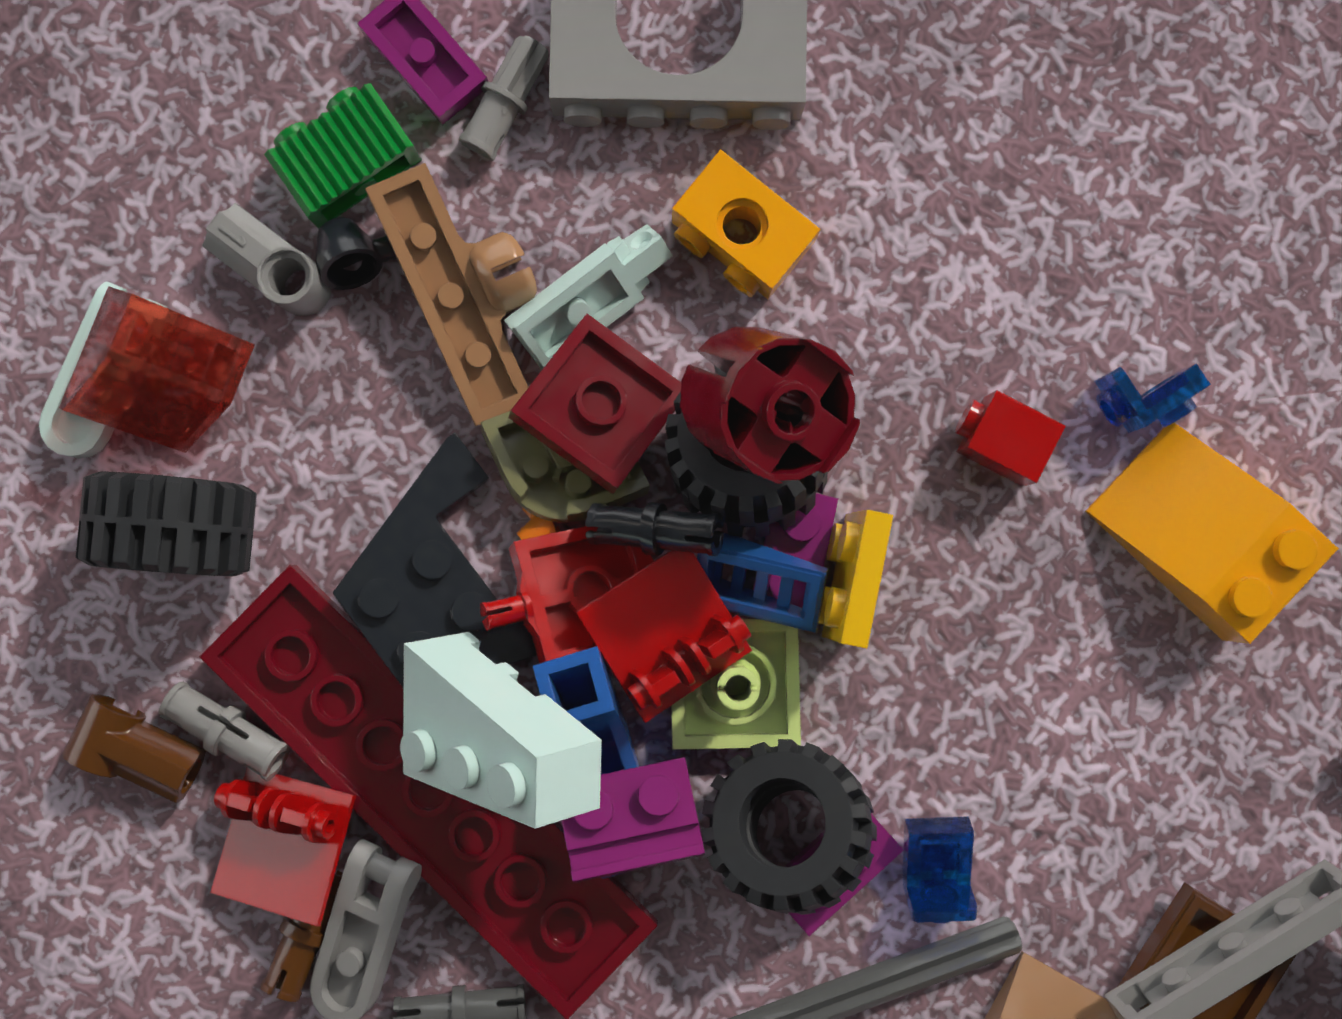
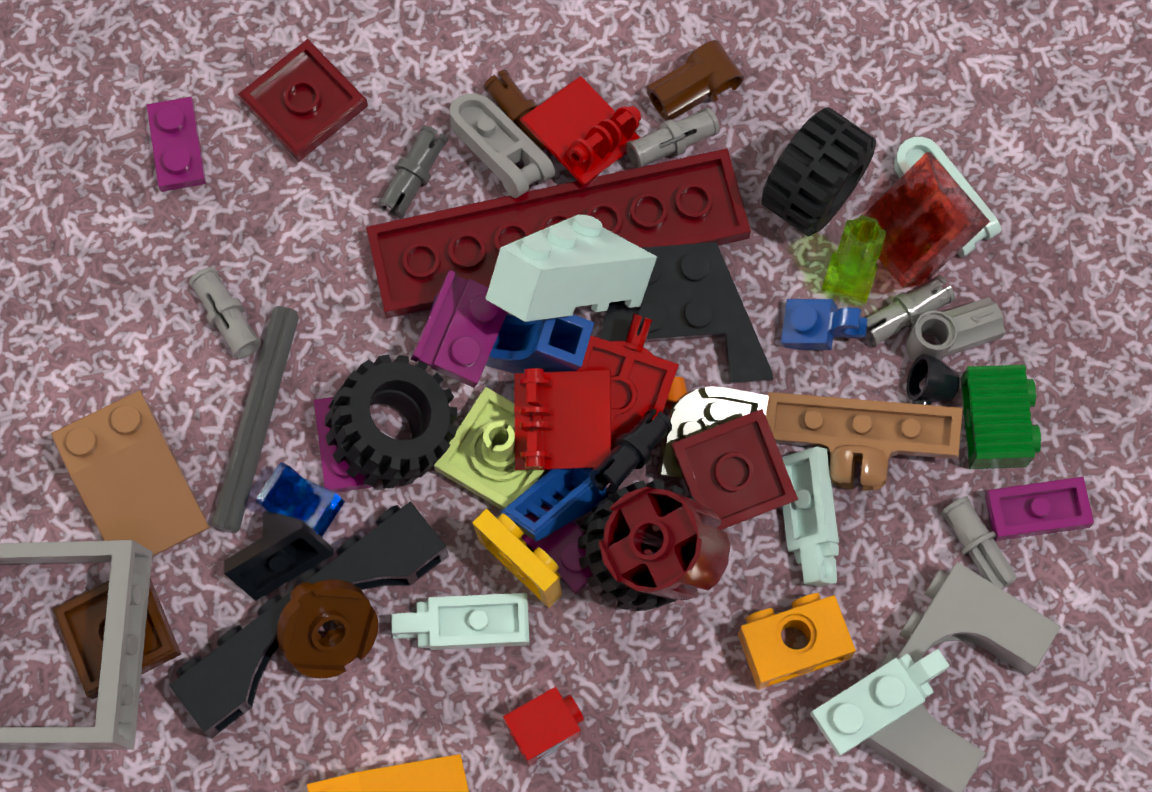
camera: 130 degrees right, 15 degrees down
(252, 417) = (854, 262): none -> clear neon green piece
(274, 331) = (907, 309): none -> light grey pin
(357, 424) = (814, 323): none -> blue plate
(763, 89) = (877, 700): none -> light aqua hinge
(949, 595) = (466, 622): none -> light aqua hinge
(1018, 849) = (278, 557): none -> black slope
(1063, 770) = (312, 607): none -> reddish brown plate
(1178, 808) = (226, 680): none -> black arch

